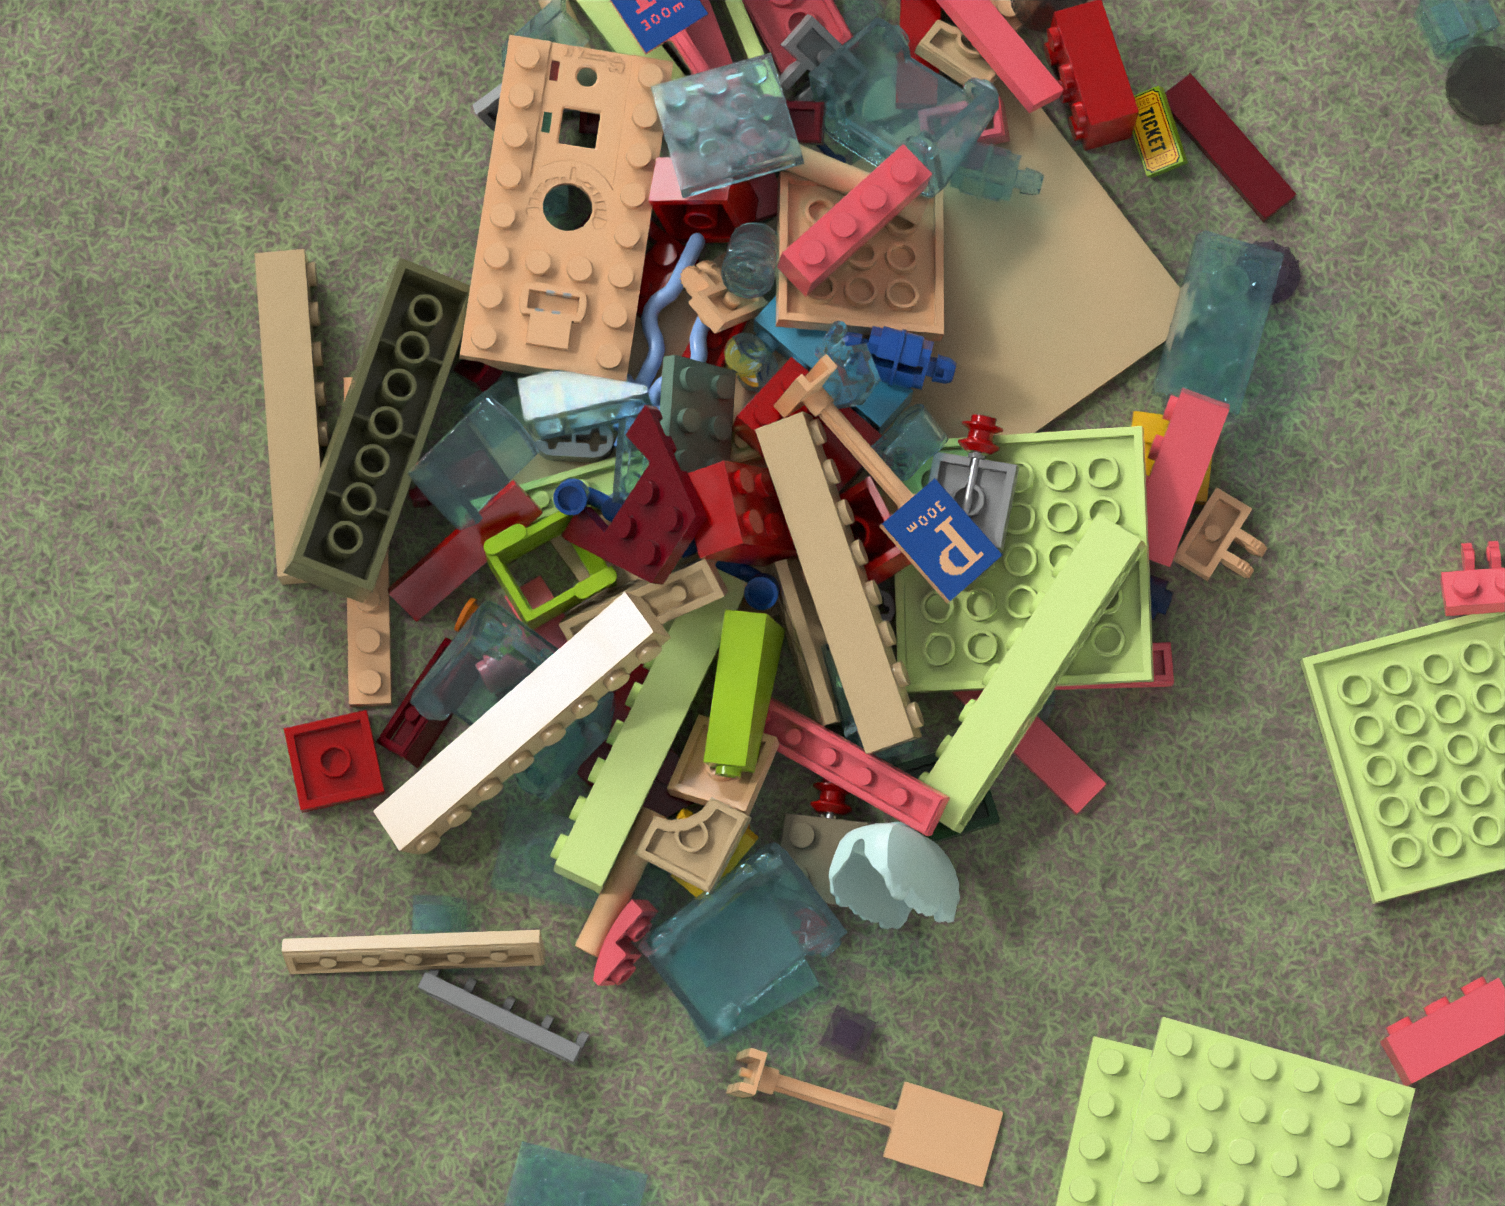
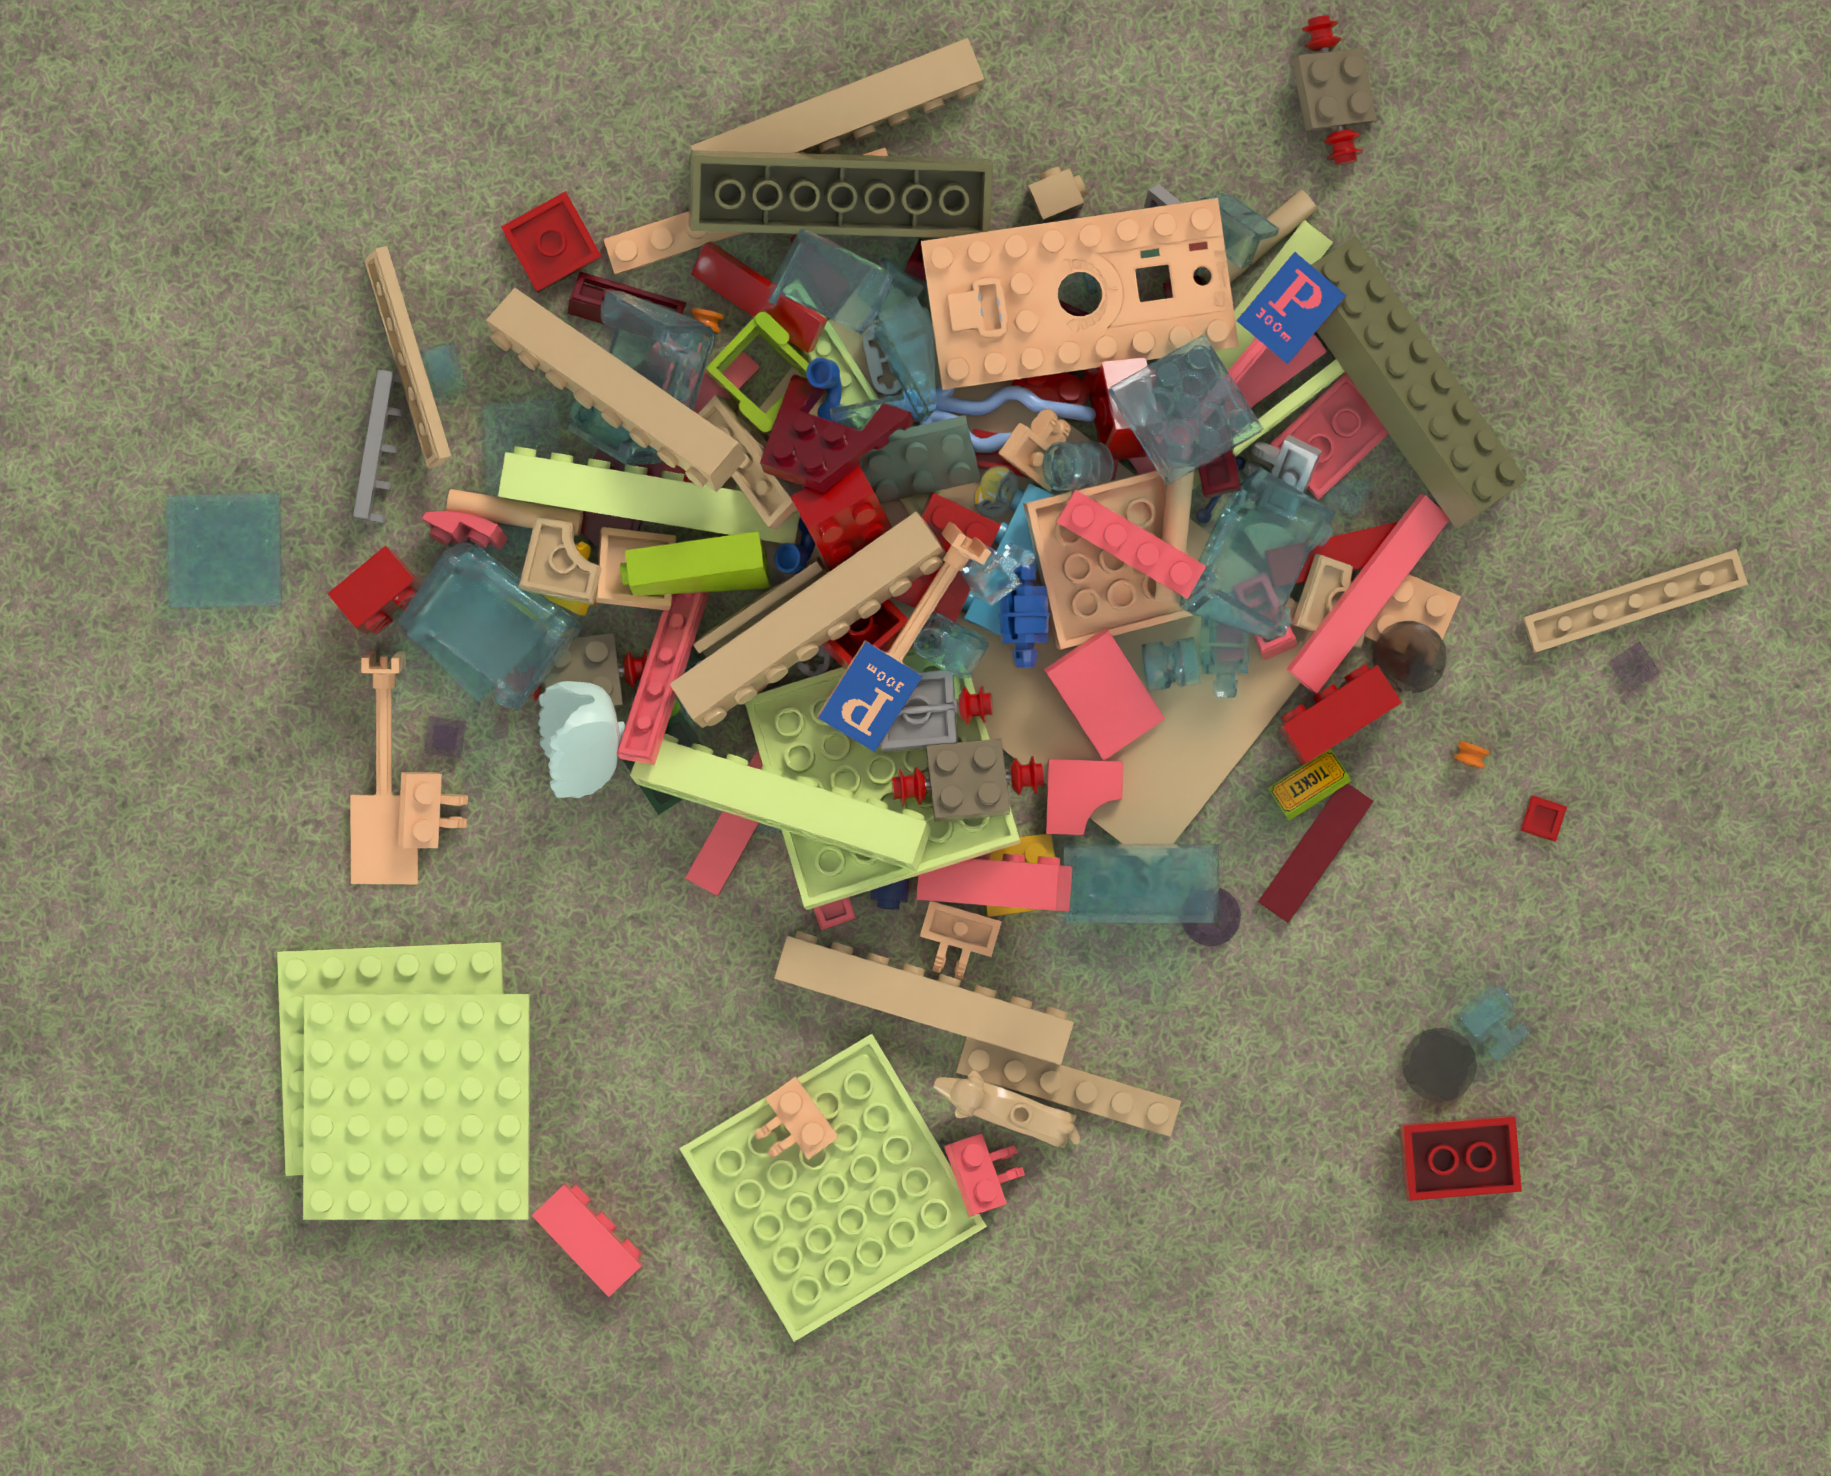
camera: 75 degrees right, 10 degrees up
(450, 213) = (1057, 193): none -> tan brick
(666, 1053) = (376, 591): none -> red brick
(922, 1080) = (421, 810): none -> light nougat hinge
(990, 225) = (1171, 664): none -> clear light blue wheel
(1002, 306) = (1104, 694): none -> coral tile
(1061, 464) = (967, 780): none -> dark tan plate
(1098, 369) = (1077, 790): none -> coral tile
(1279, 593) = (923, 999): none -> tan brick
(1377, 758) = (801, 1119): none -> light nougat hinge
(1411, 470) = (1069, 1086): none -> tan plate
(1417, 543) = (1008, 1109): none -> tan animal

